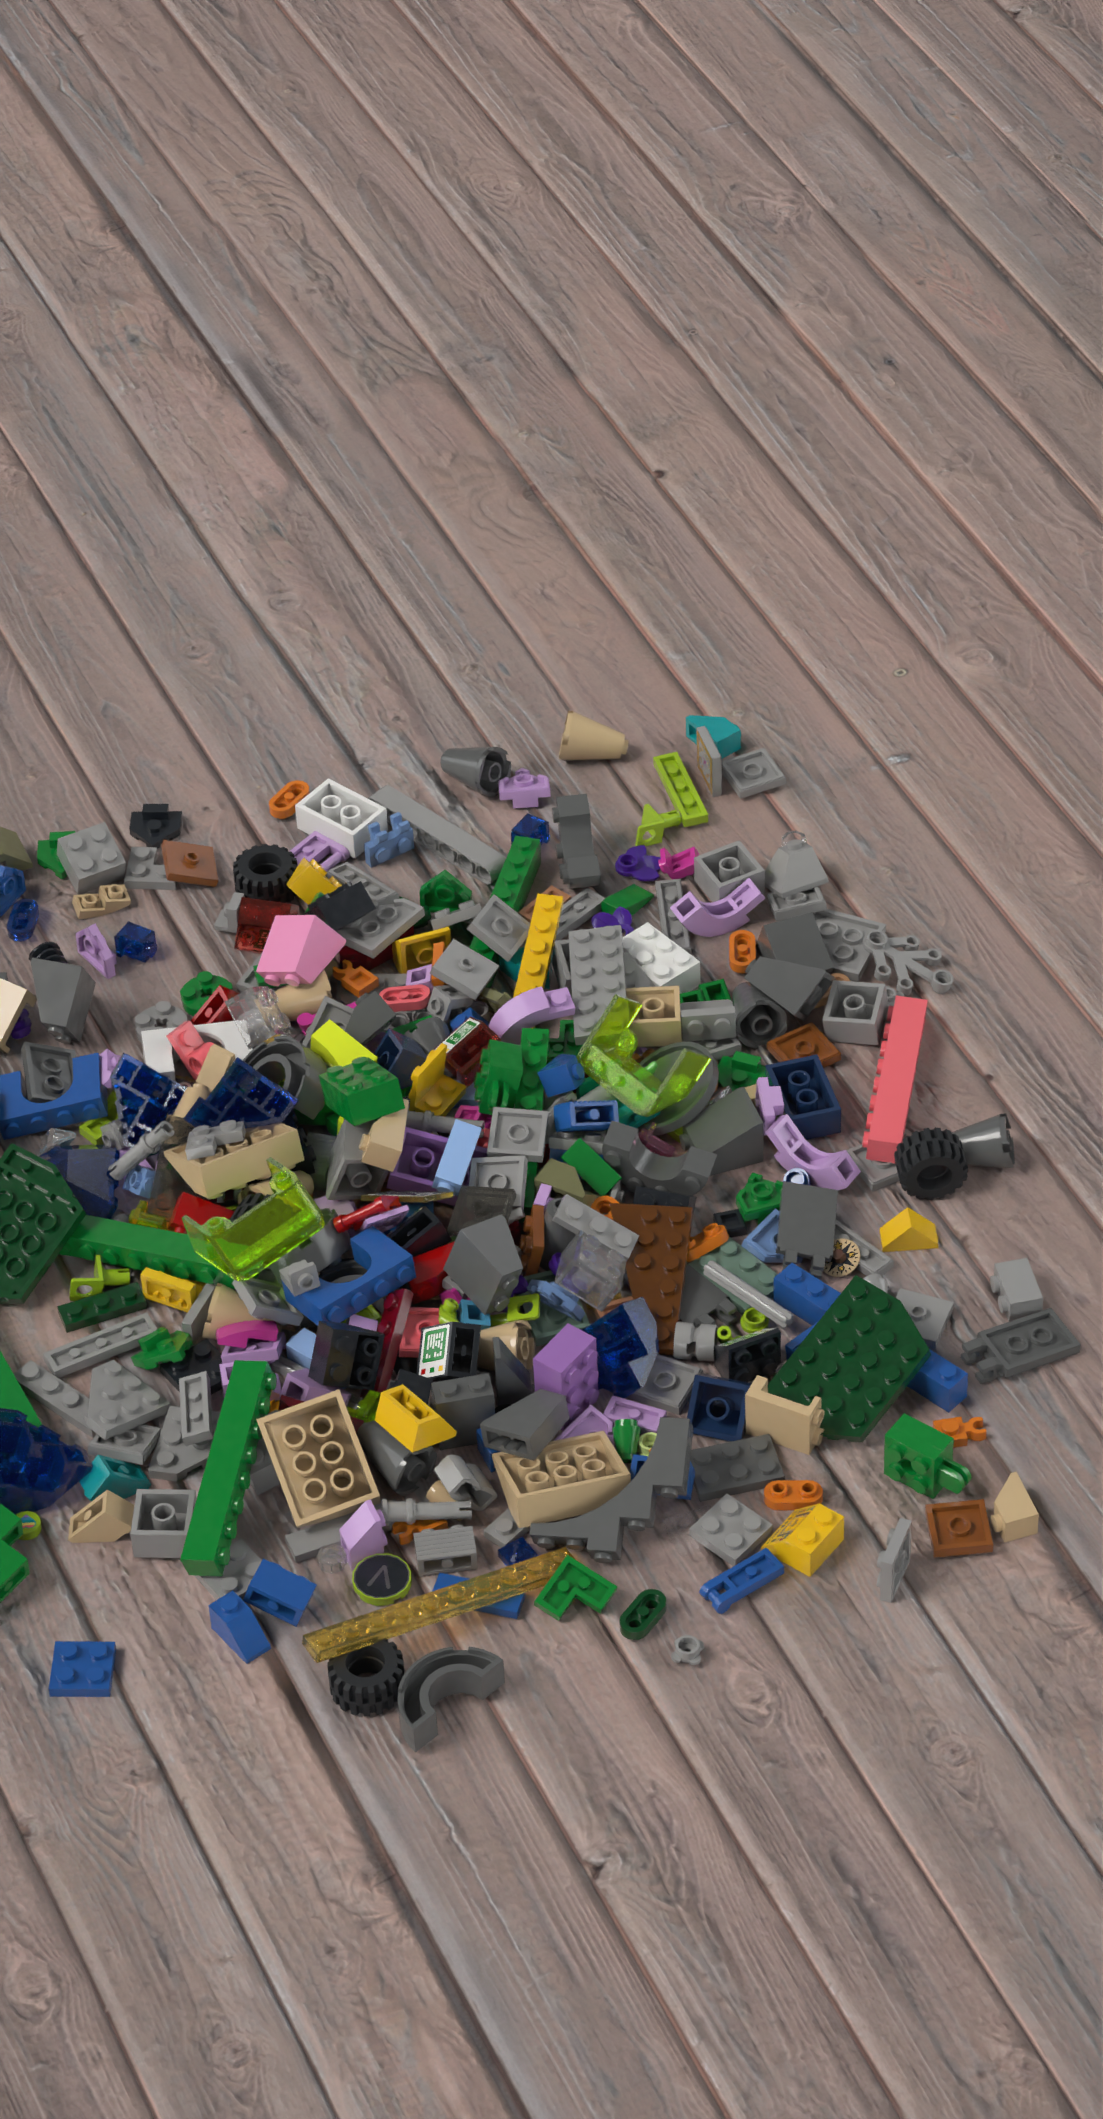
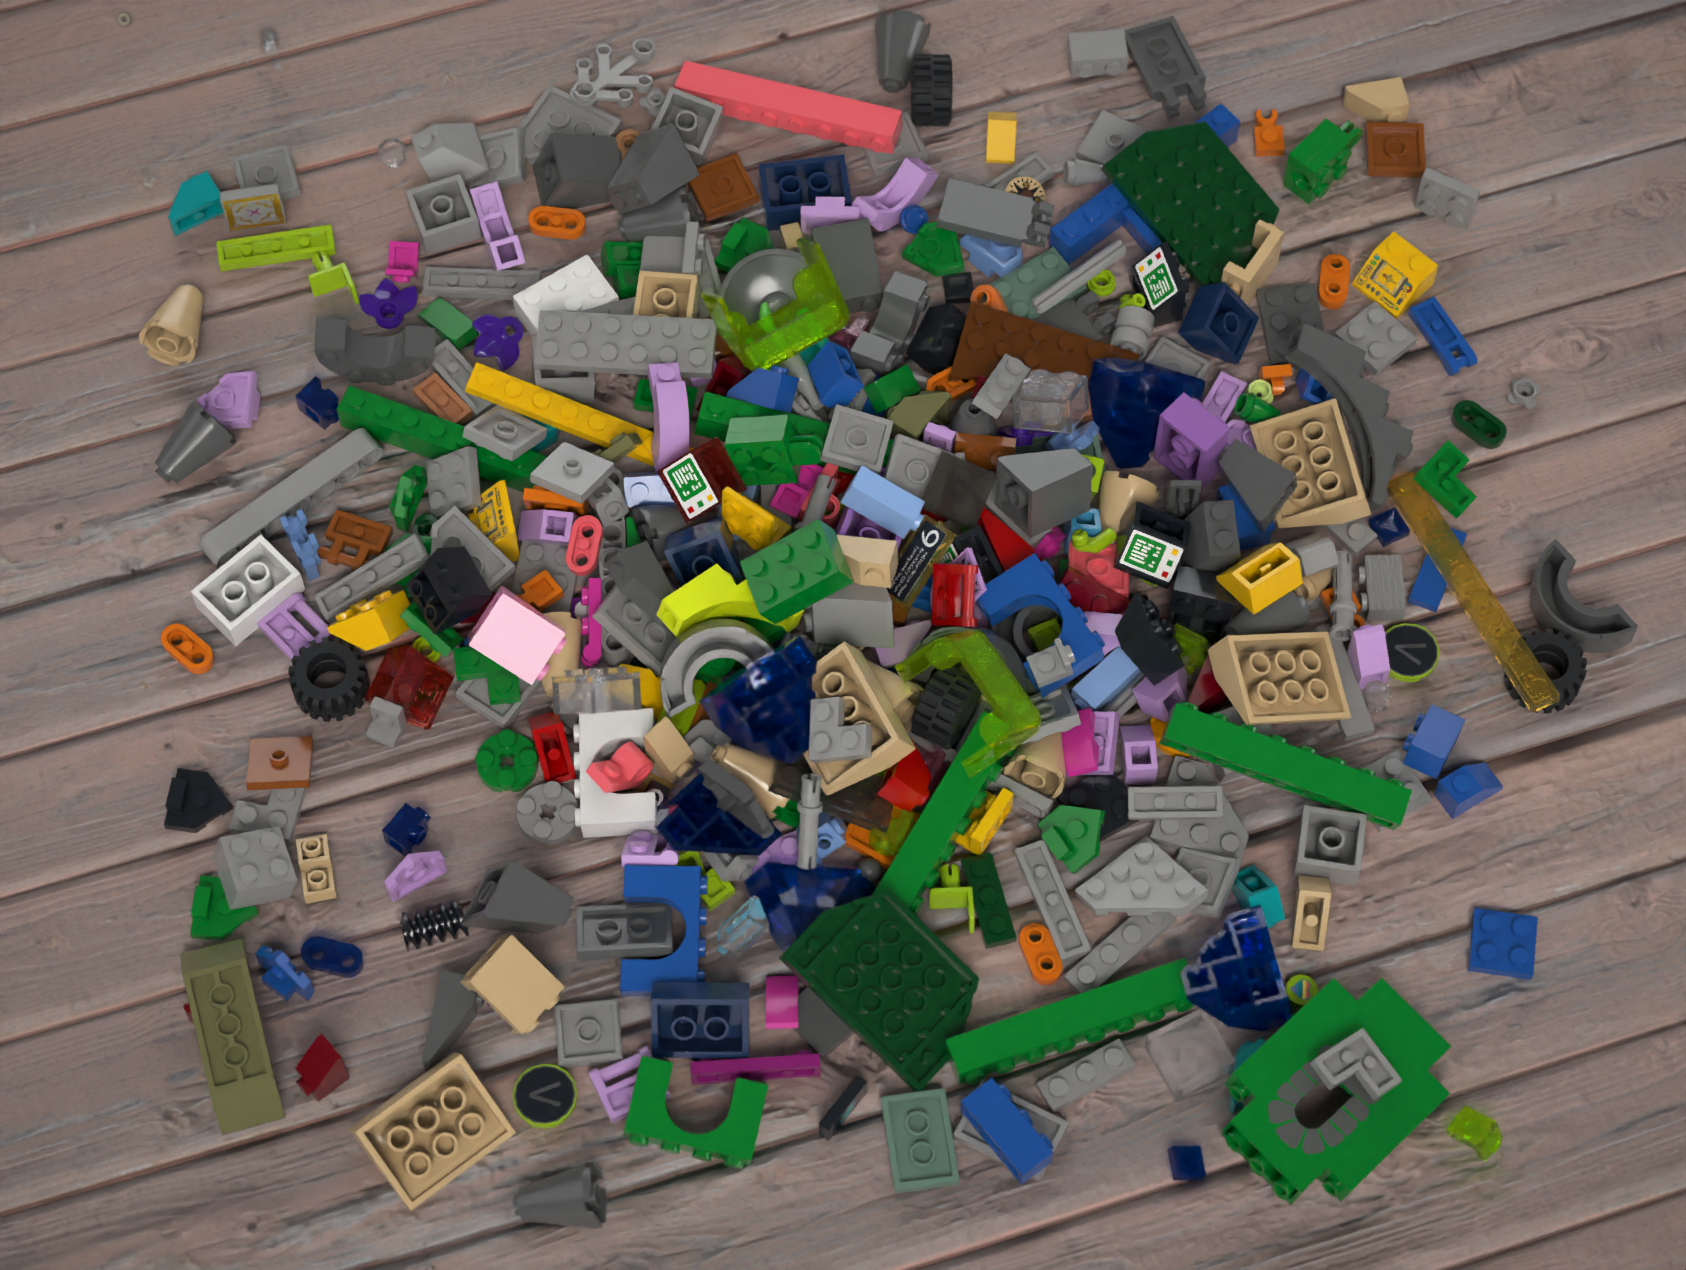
camera: 85 degrees left, 20 degrees up
(37, 1346) = (1040, 952): none -> orange plate
(160, 1098) = (735, 798): none -> dark grey container
(408, 873) = (356, 533): none -> dark orange plate

